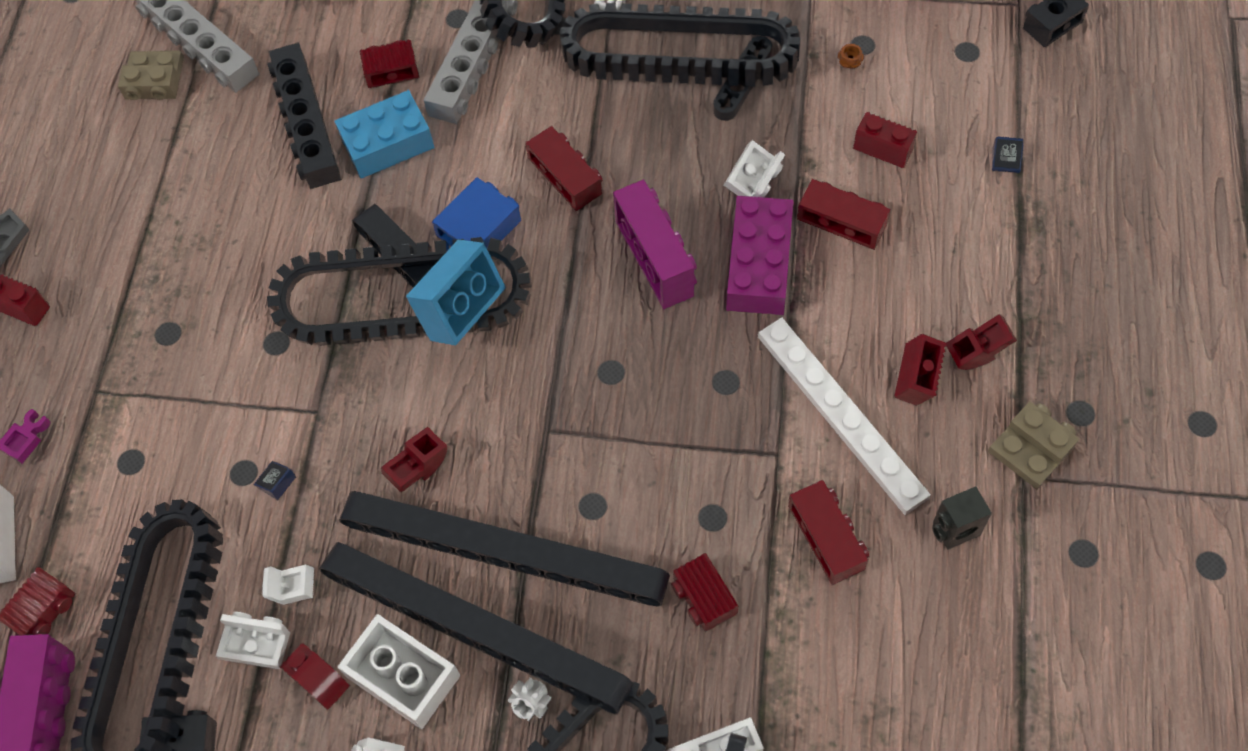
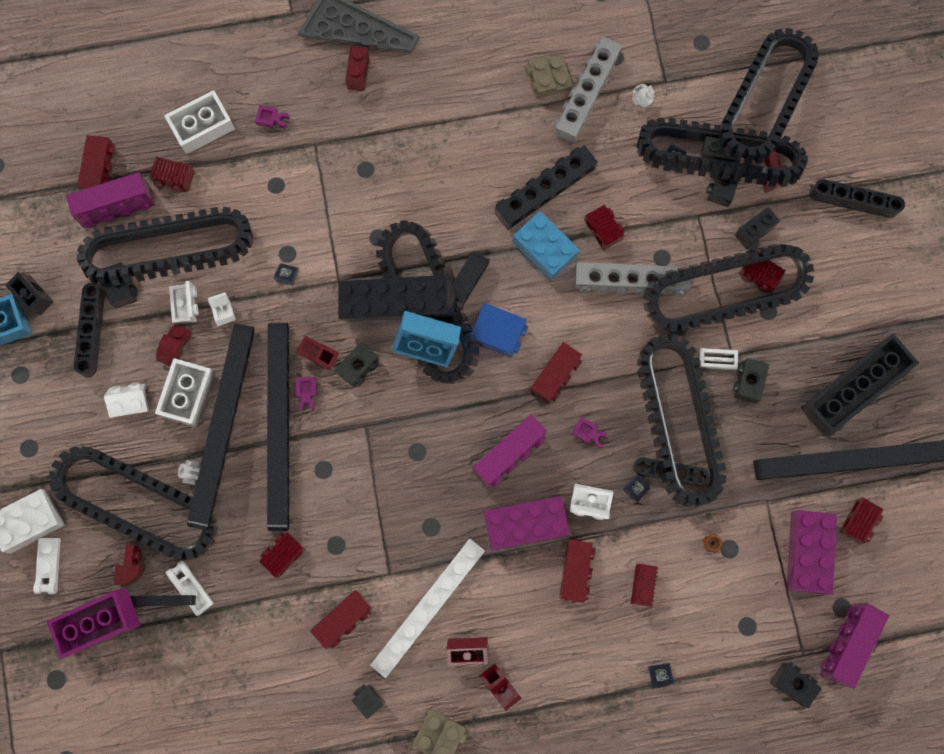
camera: 65 degrees right, 15 degrees up
(378, 322) = (390, 297): none -> black brick
(458, 427) = (362, 354): none -> pearl dark grey brick
(464, 493) = (306, 389): none -> magenta plate
(659, 154) = (586, 431): none -> magenta plate
(751, 120) = (637, 488): none -> slope

